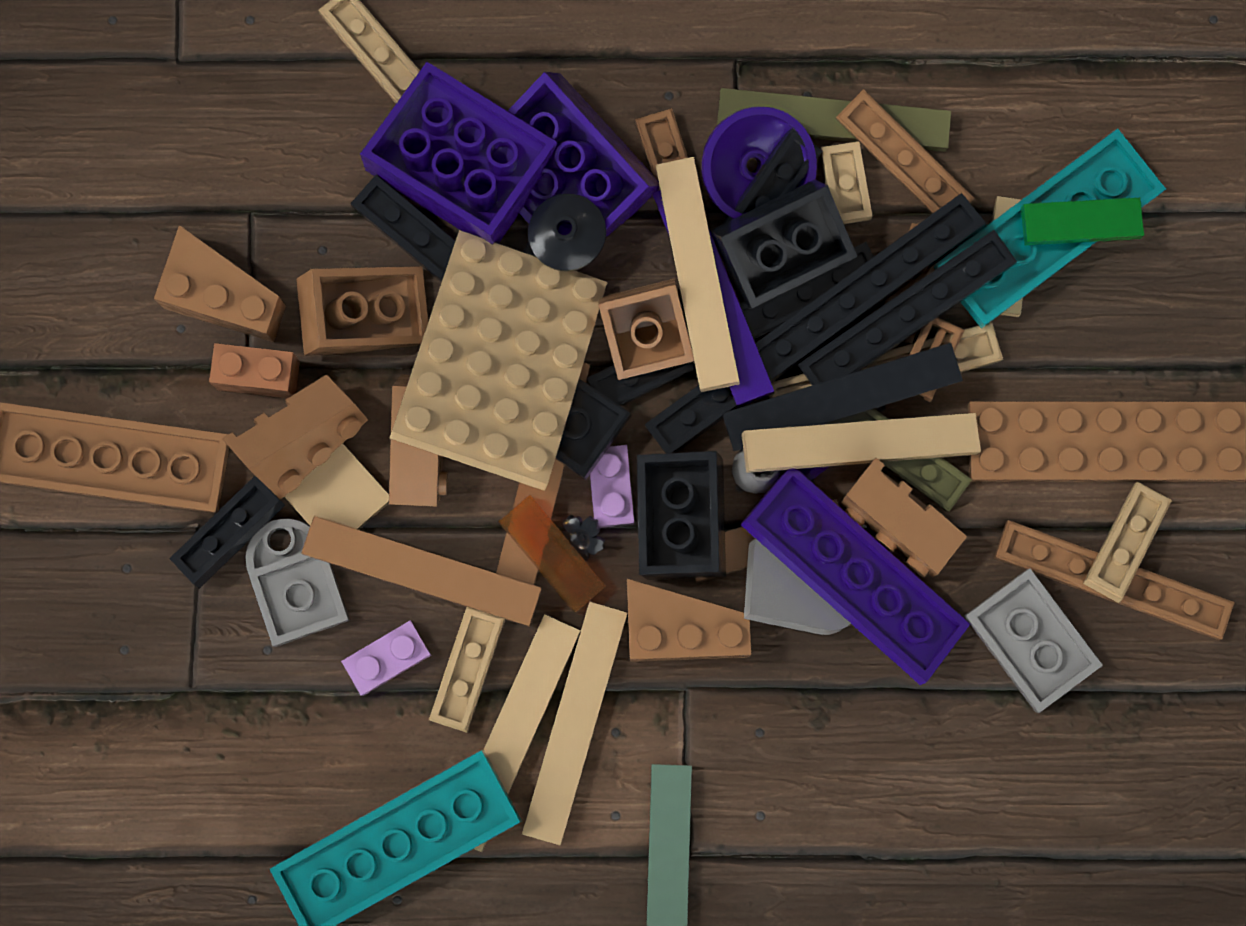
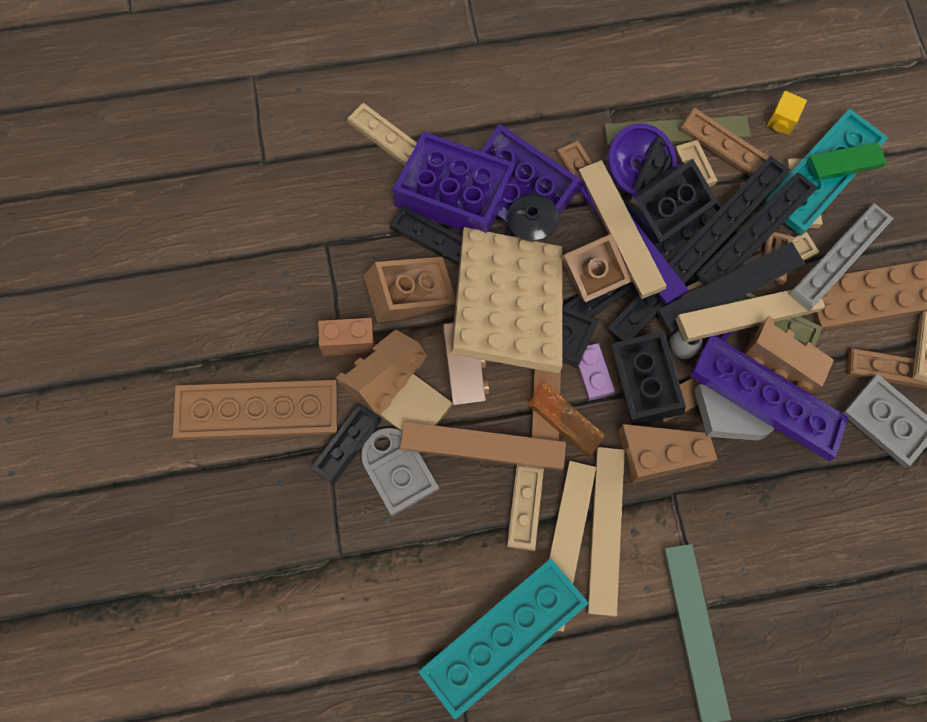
camera: 15 degrees left, 10 degrees down
(216, 291) = (313, 291): medium nougat wedge -> none
(386, 658) = (469, 509): lavender plate -> none
(583, 535) = (584, 404): black plant -> none
(1014, 119) = (786, 113): none -> yellow brick
(1031, 374) = (840, 257): none -> light grey tile

